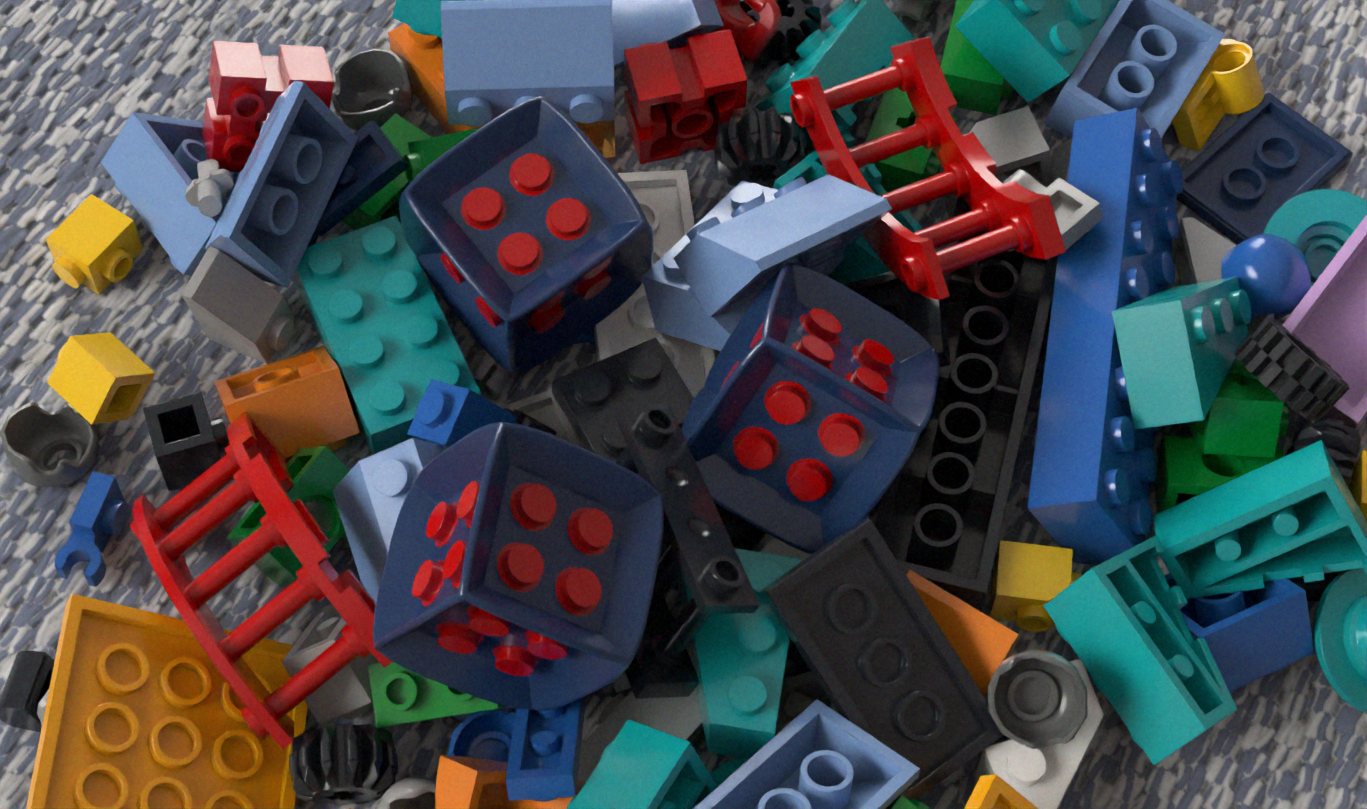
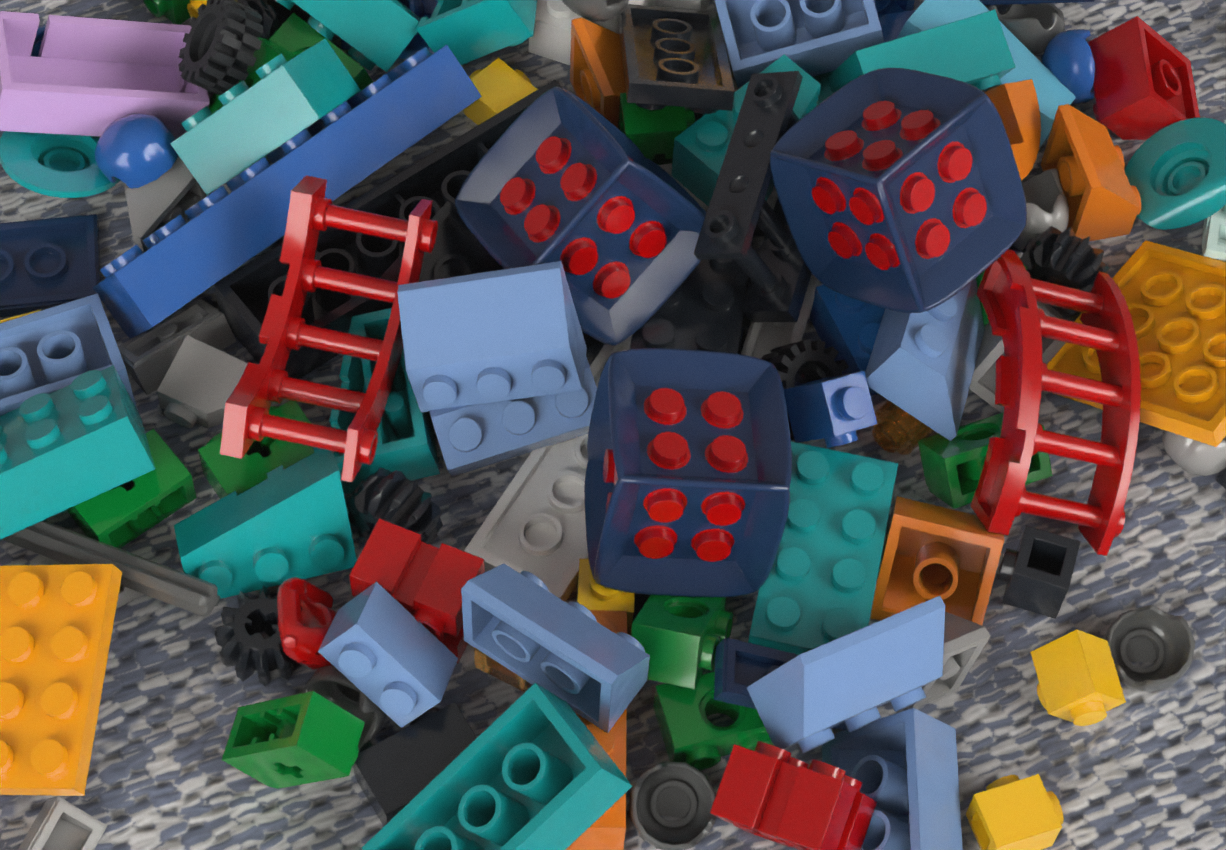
camera: 145 degrees left, 0 degrees up
(96, 518) = (1138, 569): blue plate -> none
(209, 188) = (903, 732): light grey piece -> none
(1072, 208) = (257, 248): light grey plate -> none

